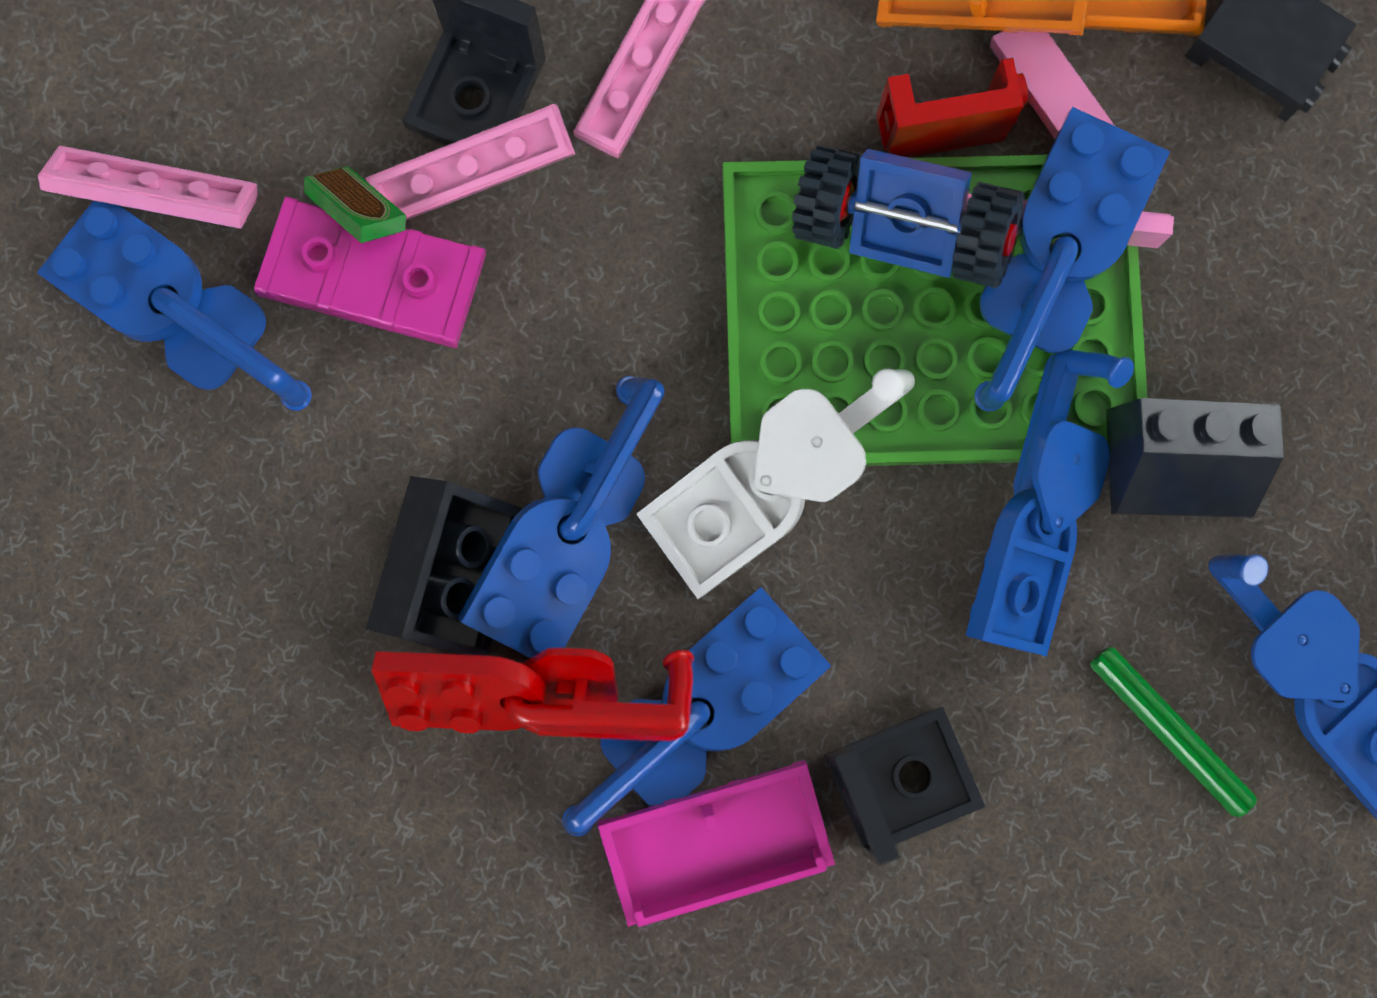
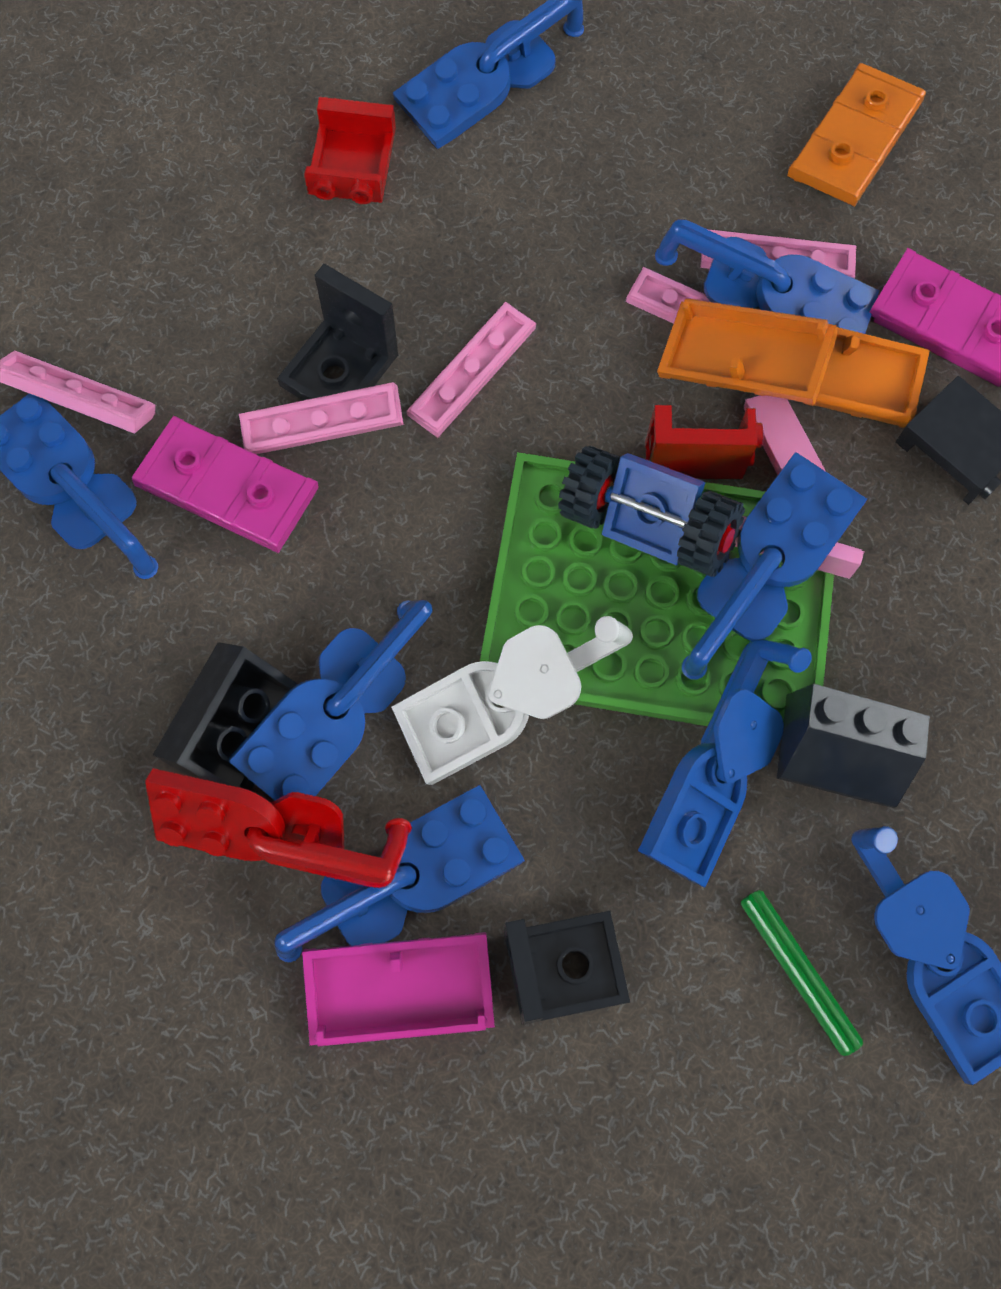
camera: 10 degrees right, 10 degrees down
(354, 204) = (225, 430): tile -> none

